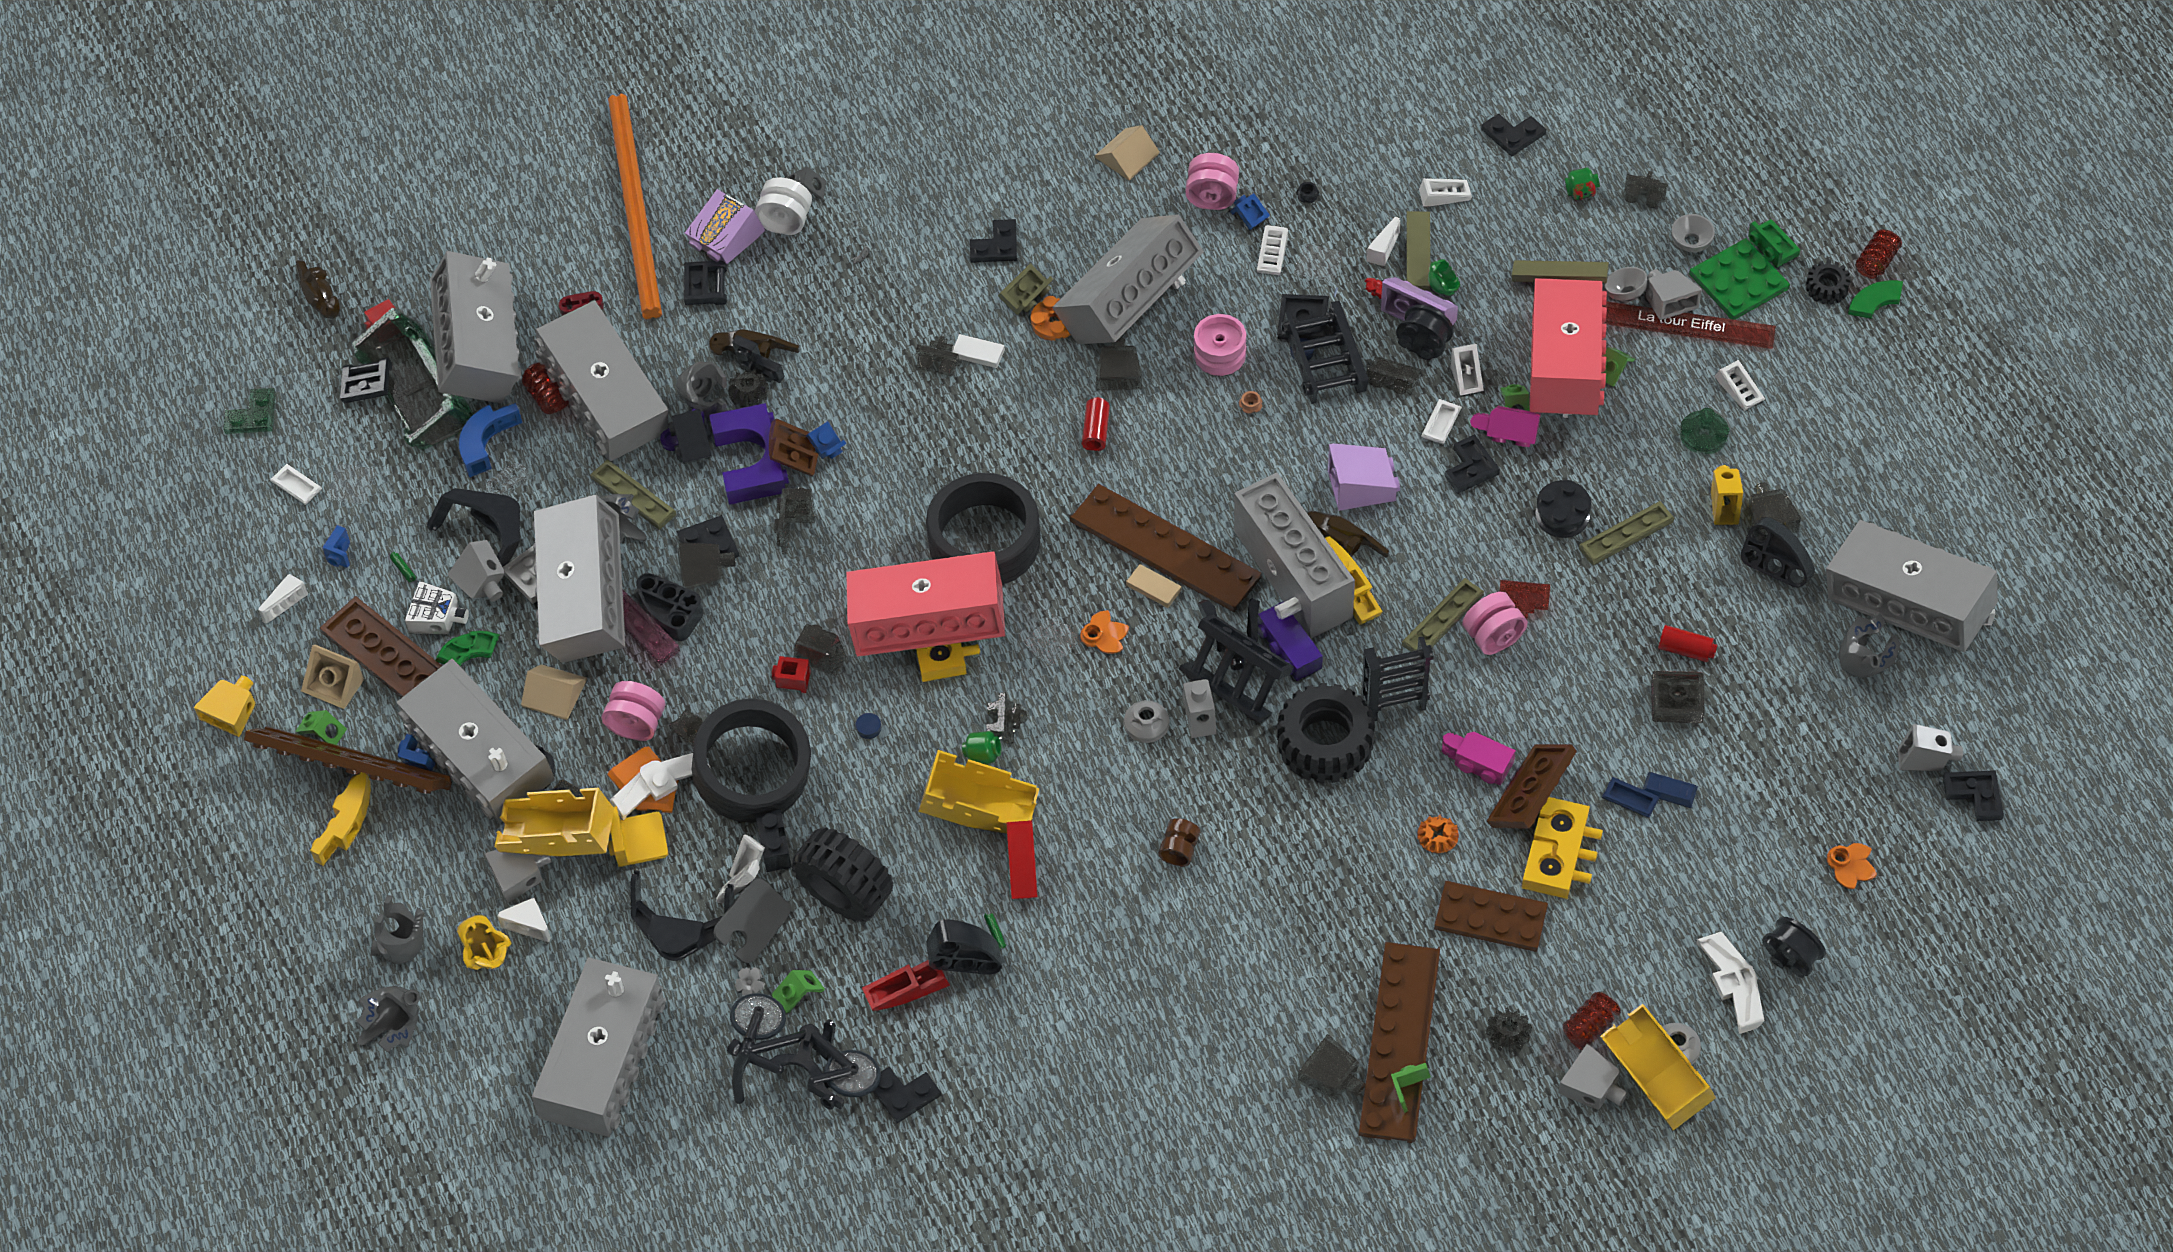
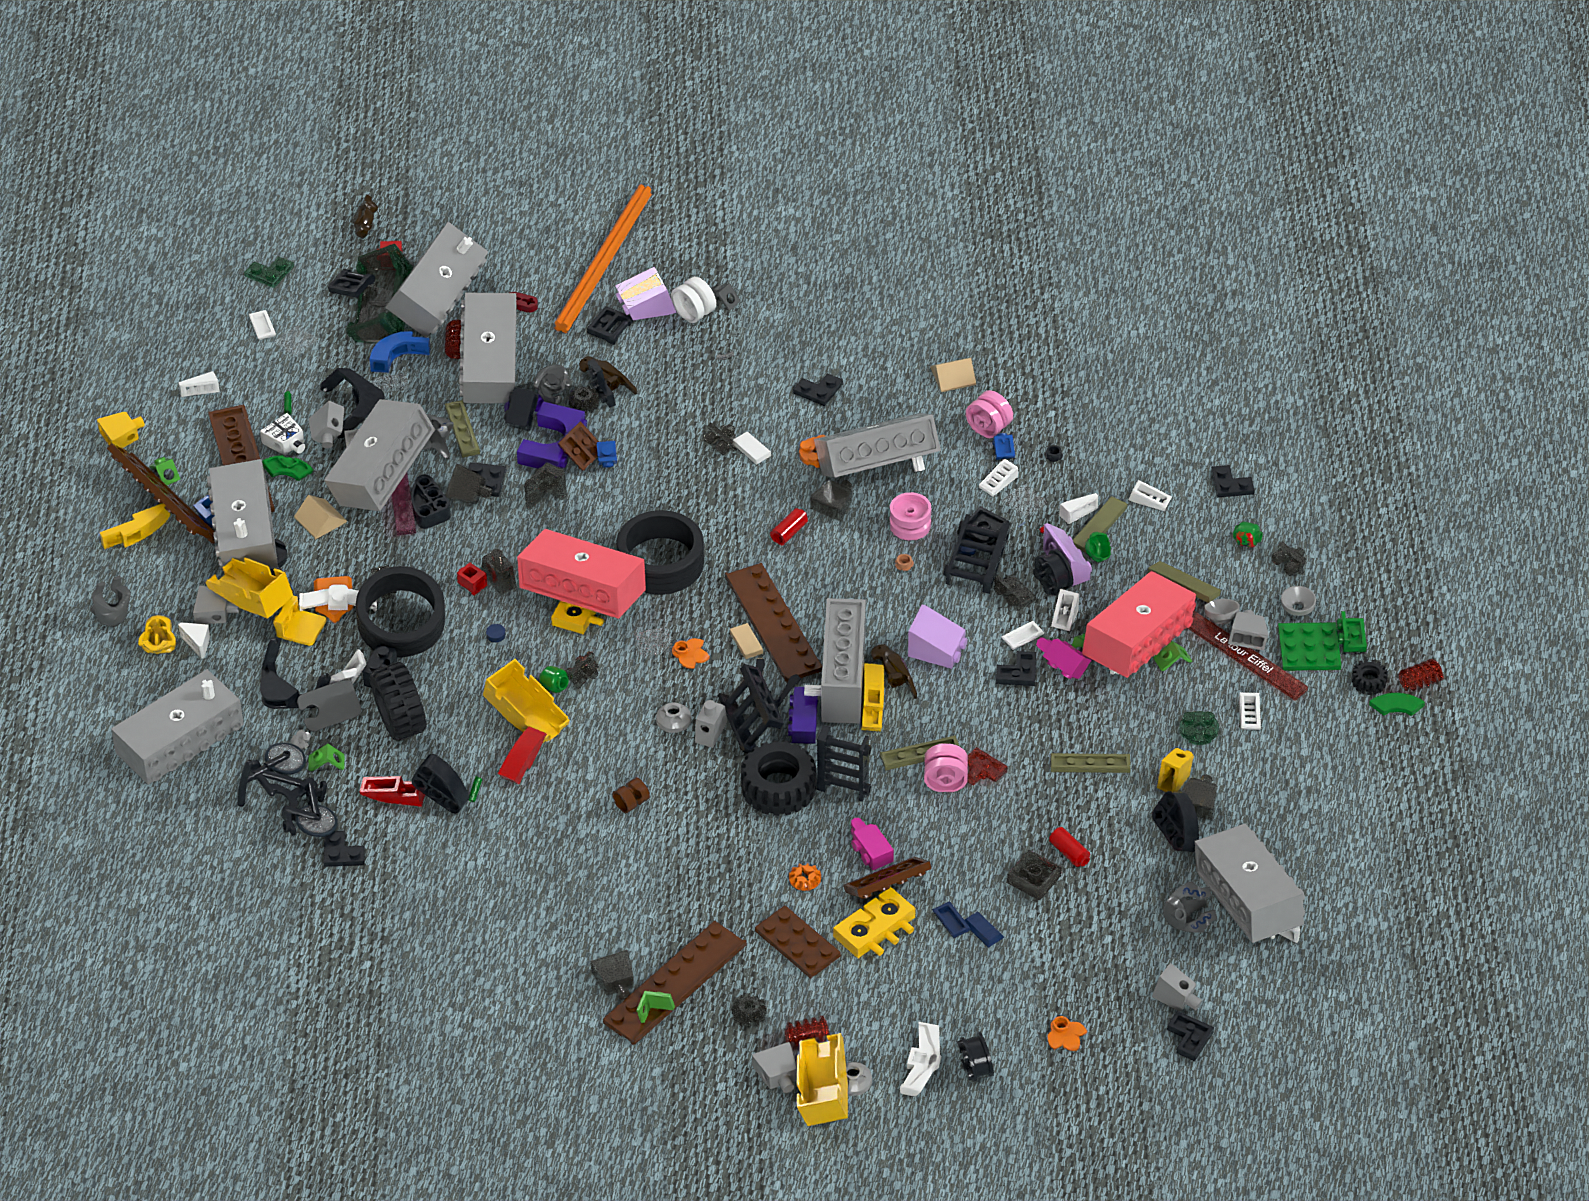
camera: 30 degrees right, 10 degrees down
(331, 677) = (192, 443): tan slope -> none
(336, 547) = (256, 370): blue bracket -> none
(391, 1010) = (76, 647): dark grey piece -> none
(633, 710) = (354, 549): bright pink wheel -> none
(1022, 291) = (812, 424): olive bracket -> none
(1563, 509) = (1057, 725): black wheel -> none

